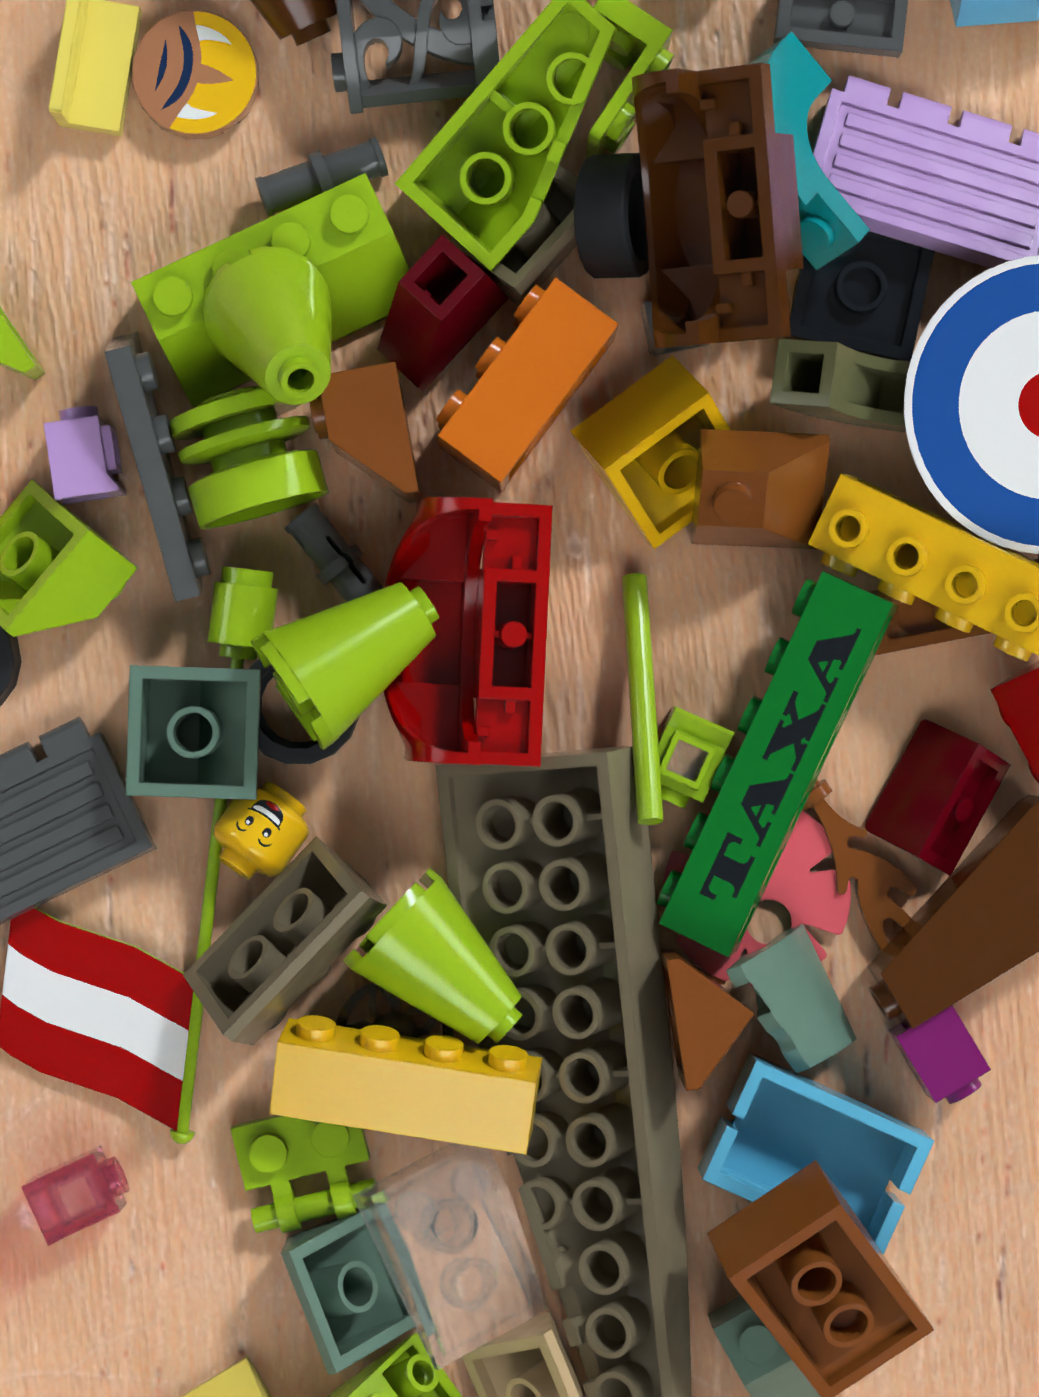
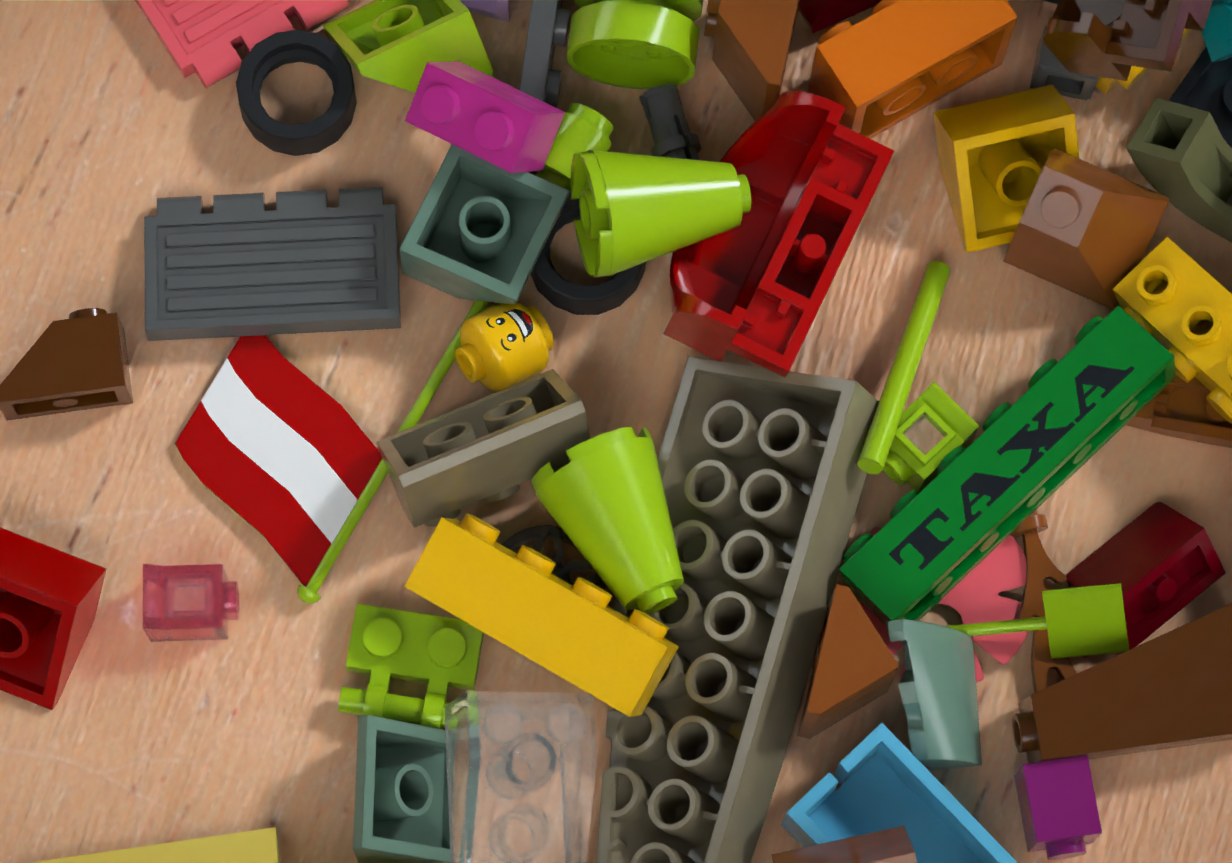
camera: 20 degrees right, 15 degrees down
(149, 630) = (484, 116): none -> dark pink brick
(887, 880) = (1076, 620): none -> lime piece

